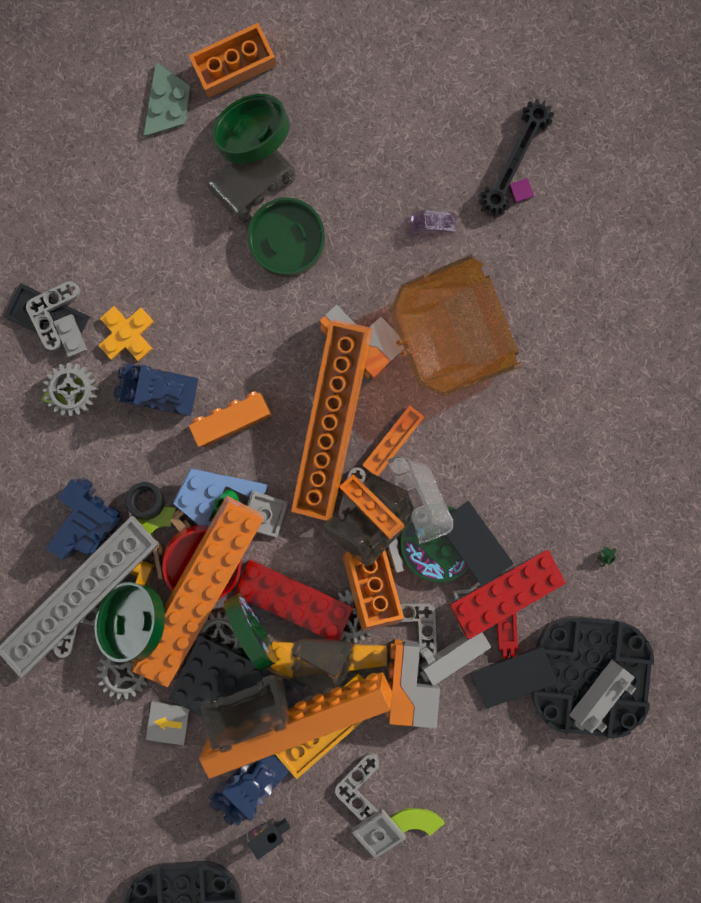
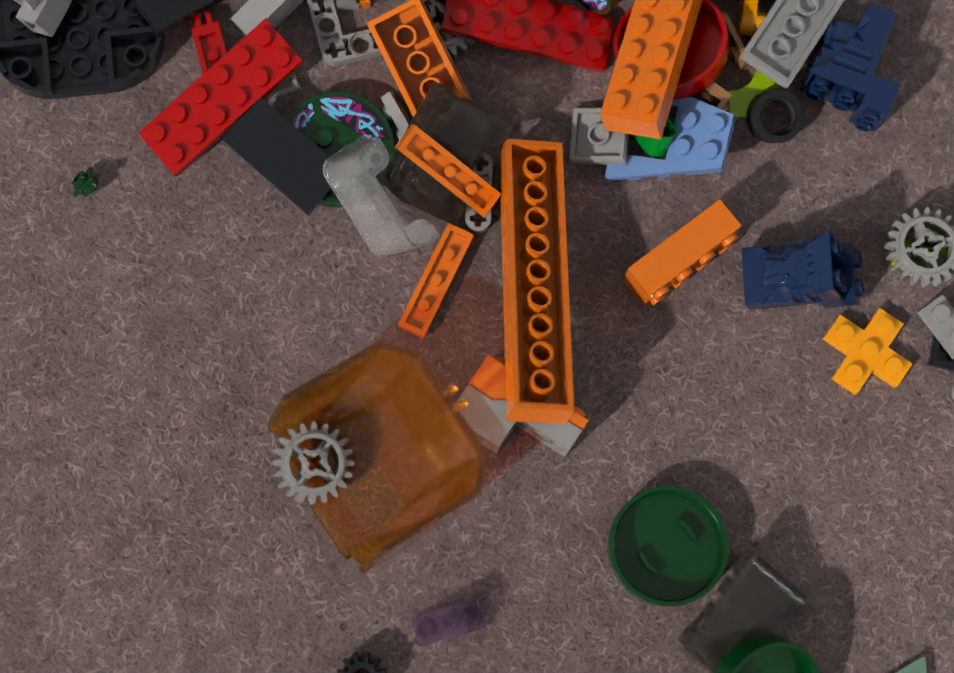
camera: 160 degrees right, 10 degrees down
(488, 325) = (328, 442): none -> light grey gear

